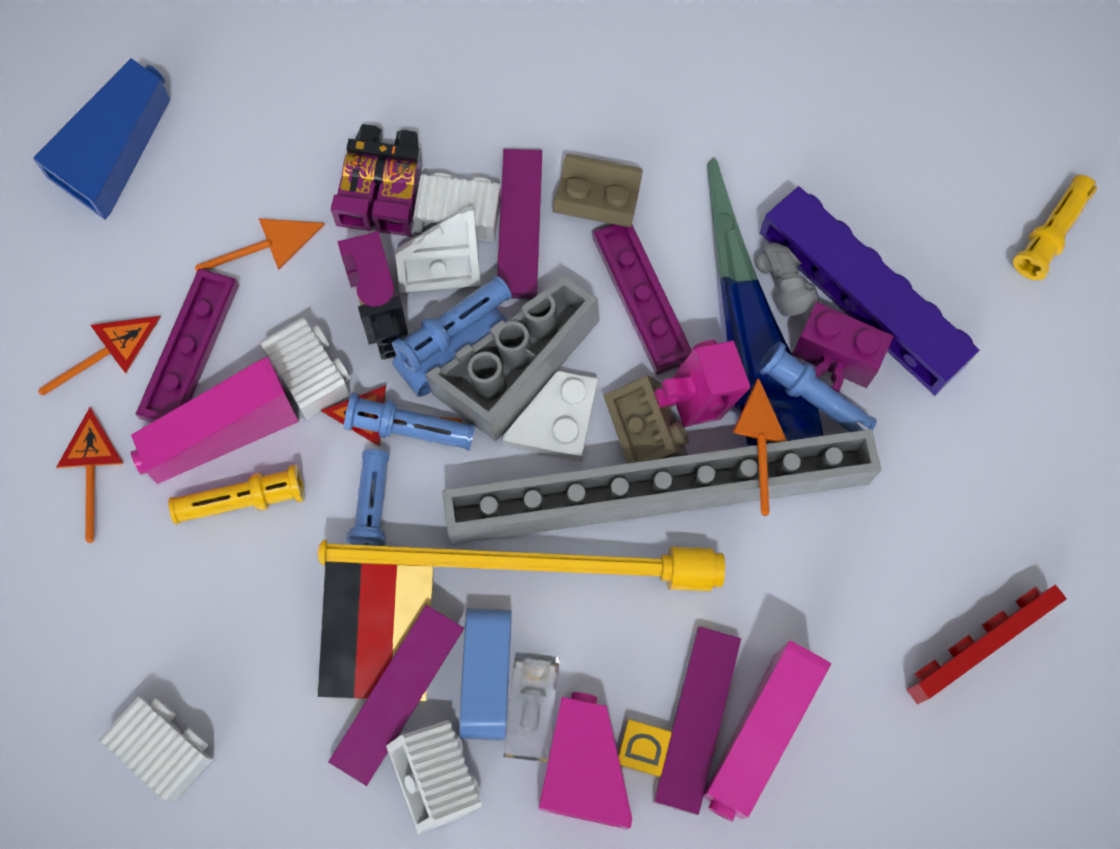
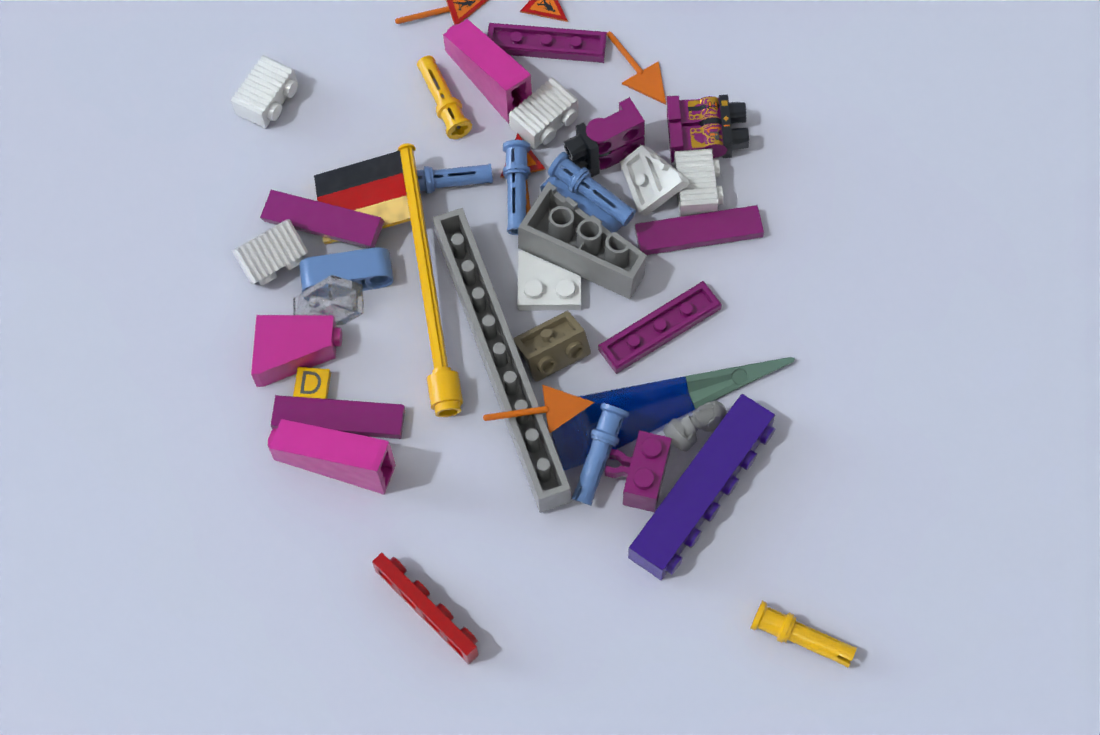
camera: 85 degrees right, 5 degrees down
(598, 190) = (735, 276): dark tan bracket -> none
(705, 383) = (586, 368): dark pink brick -> none

